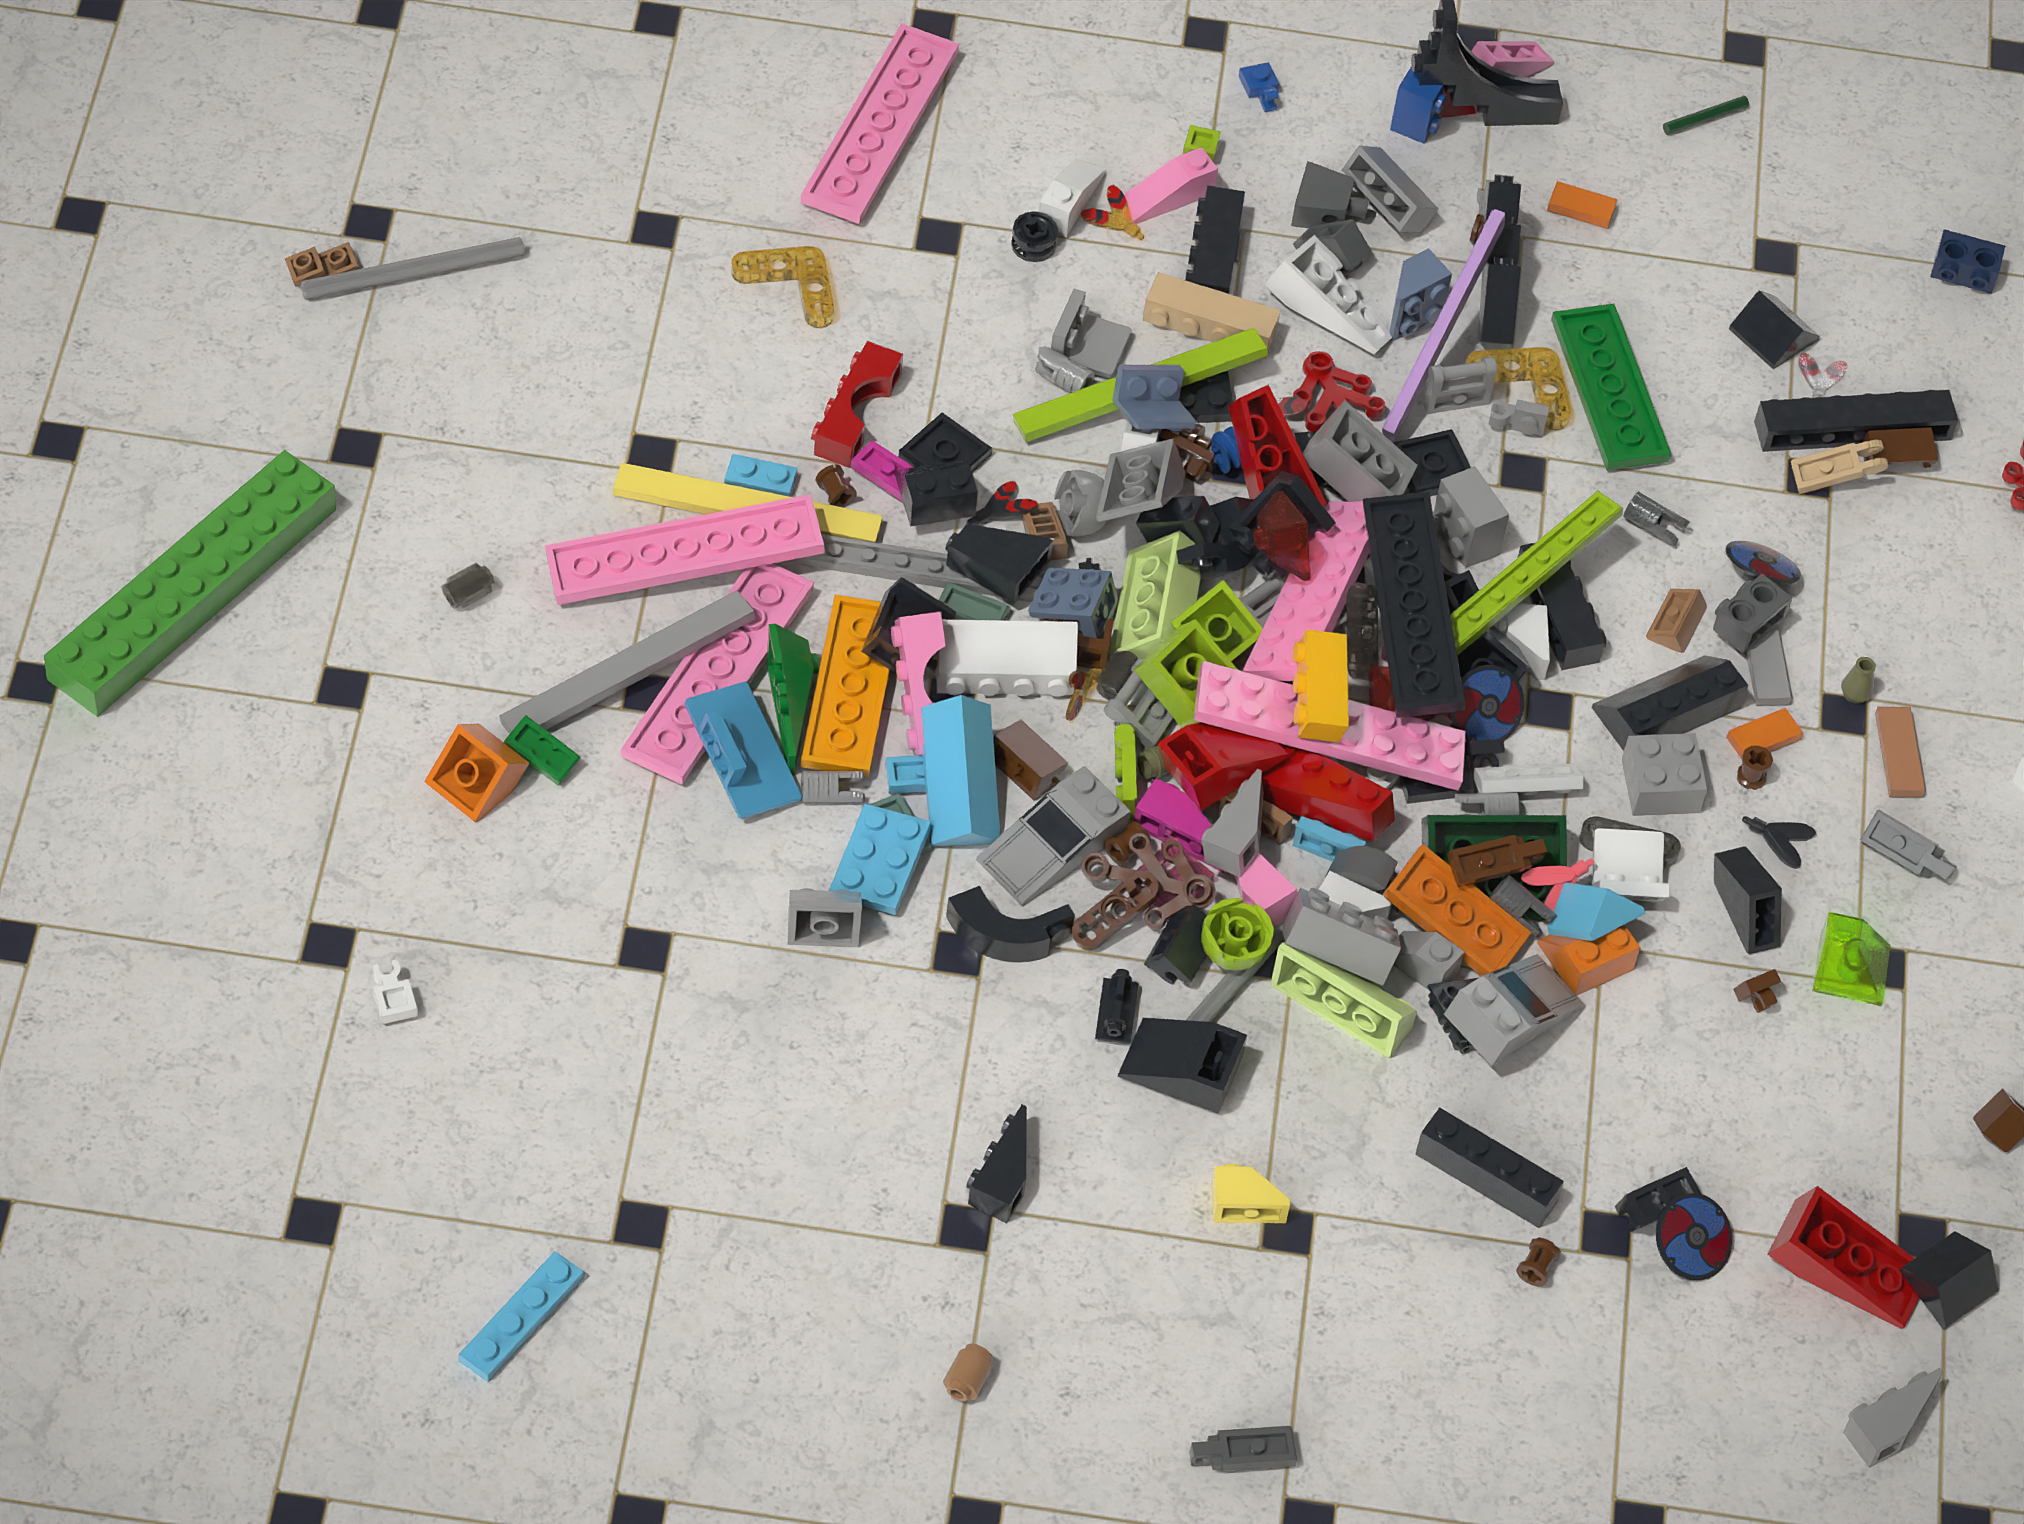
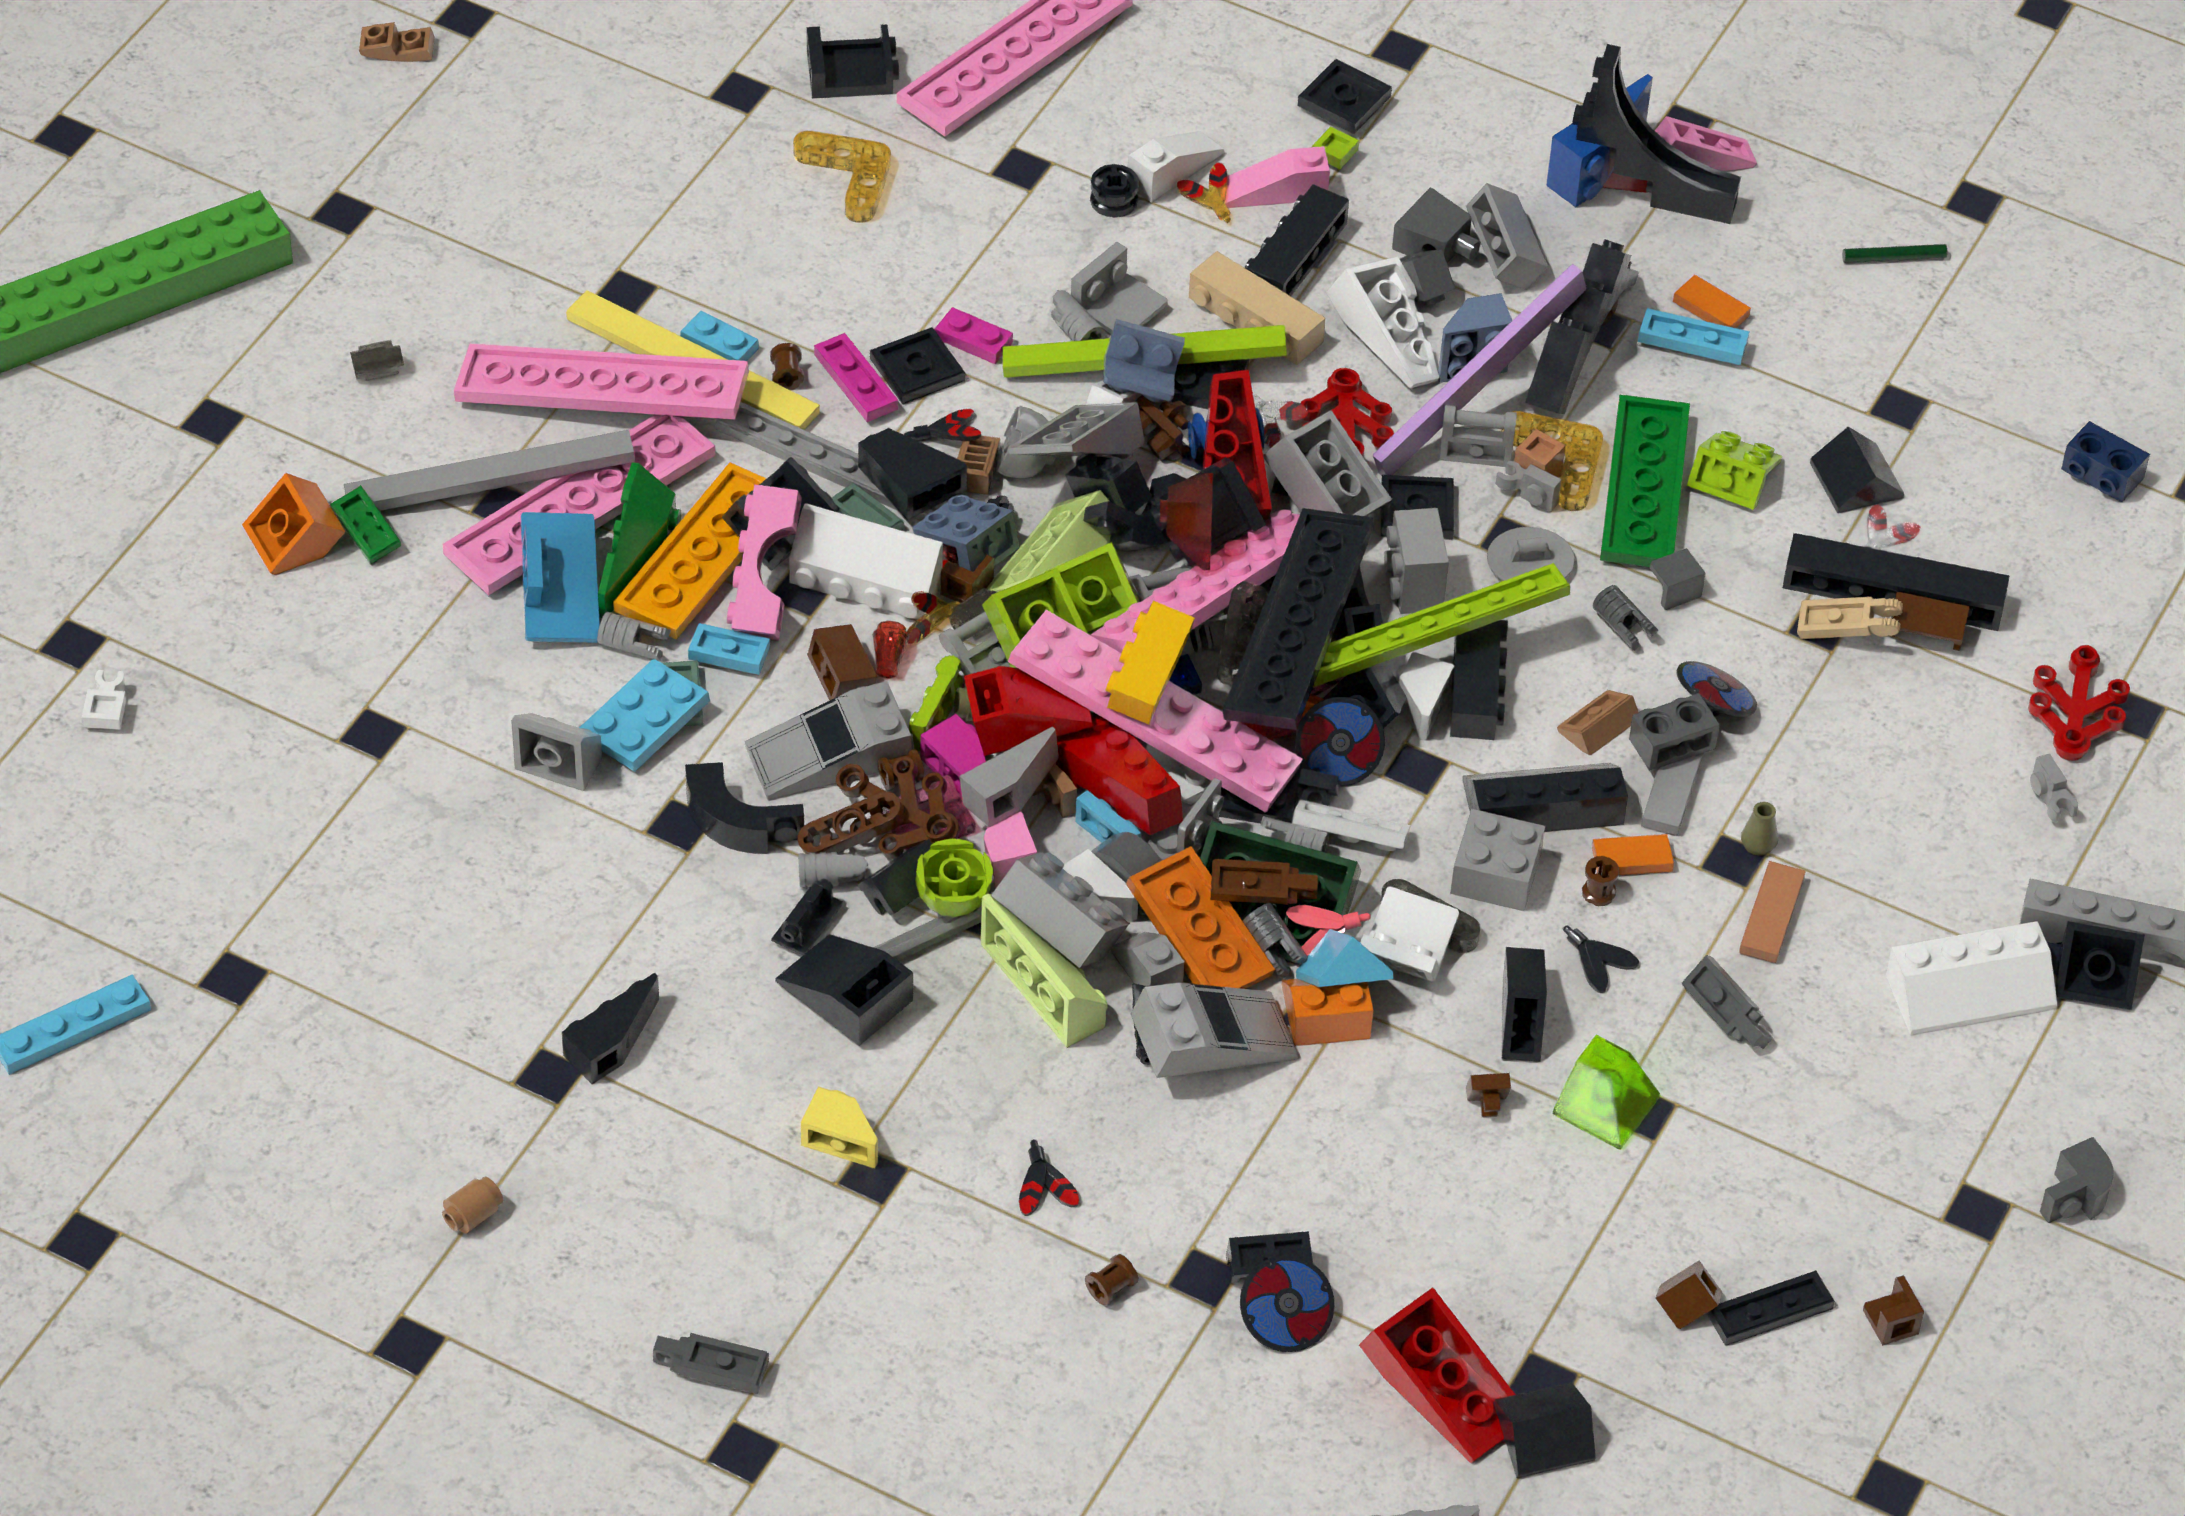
camera: 25 degrees right, 5 degrees down
(412, 268) = (481, 66): light grey axle -> none
(744, 176) = (851, 66): none -> black panel
(871, 375) = (877, 274): red arch -> none
(937, 492) = (878, 396): black slope -> none
(960, 772) = (761, 653): medium azure slope -> none
(980, 409) = (973, 335): none -> dark pink plate
(1059, 729) = (889, 646): none -> clear red cone
(1115, 955) = (832, 867): none -> light grey hinge
(1185, 91) = (1344, 96): none -> black plate
(1261, 83) = (1430, 107): blue plate -> none
(1403, 835) = (1194, 827): none -> light grey bracket
(1432, 1185) = (1042, 1175): none -> piece
(1489, 1167) = (1106, 1175): black brick -> none
(1519, 385) = (1541, 452): none -> nougat panel
(1549, 484) = (1527, 550): none -> light grey shield
(1584, 239) = (1693, 336): none -> medium azure plate
(1677, 353) = (1732, 468): none -> lime bracket
(1684, 466) = (1680, 578): none -> dark grey panel

